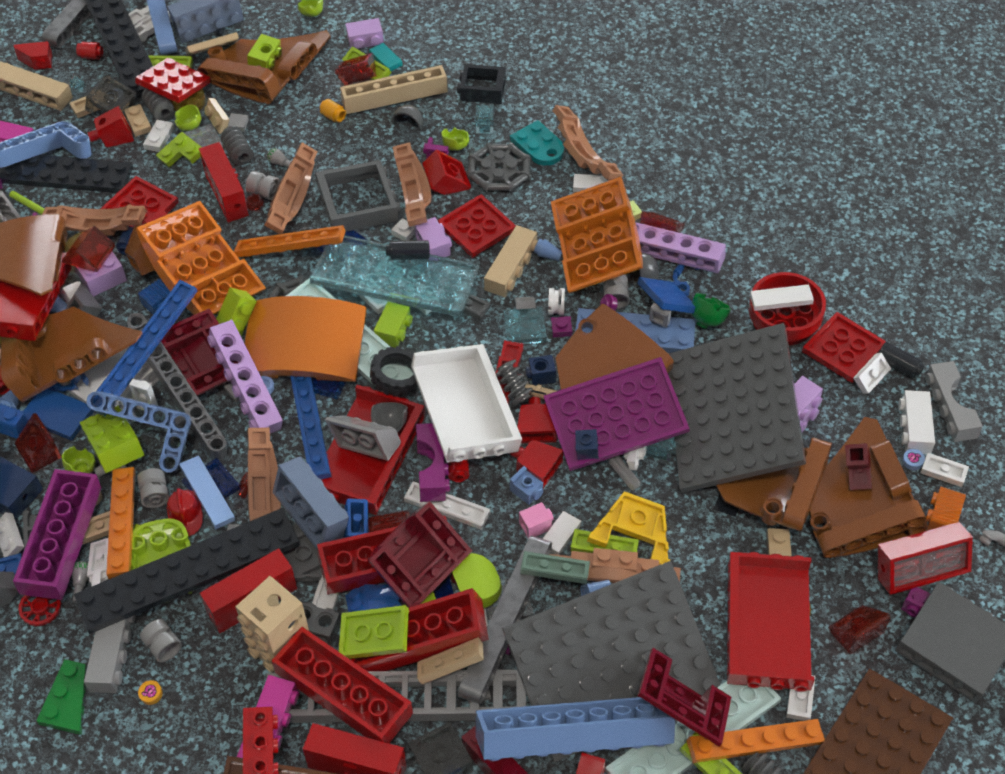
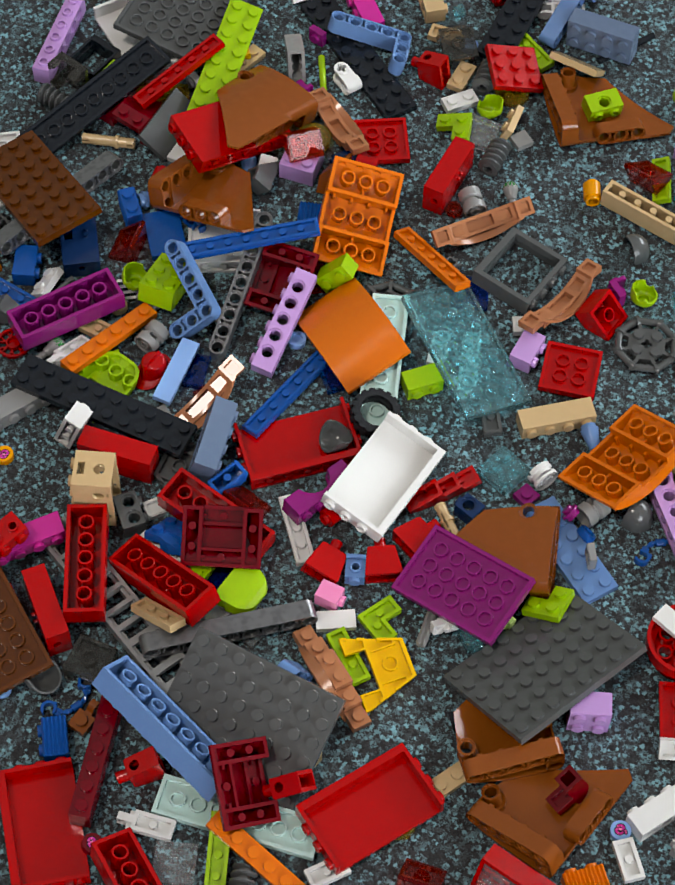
camera: 50 degrees right, 5 degrees up
(55, 191) = (346, 78): none -> white piece
(142, 392) = (218, 275): white plate -> none
(160, 640) = (42, 432): light grey wheel -> none
(187, 604) = (73, 424): none -> white brick
(364, 436) = (300, 432): light grey slope -> none
(374, 632) = (139, 551): lime plate -> none
(408, 250) = (492, 340): black brick -> none
(503, 501) = (325, 562): none -> red torso
(514, 383) = (432, 497): dark grey piece -> none
(525, 302) = (524, 455): light grey tile -> none
(555, 567) = (291, 632): sand green tile -> none
(586, 502) = (377, 616): none -> lime plate
(587, 444) = (414, 582): dark blue brick -> none
(633, 309) = (586, 534): none -> blue tile
(666, 295) = (616, 548): blue tile -> none
(685, 369) = (551, 608): none -> lime plate
(709, 311) = (632, 588): green cylinder -> none
(710, 656) = (290, 784): none -> red torso

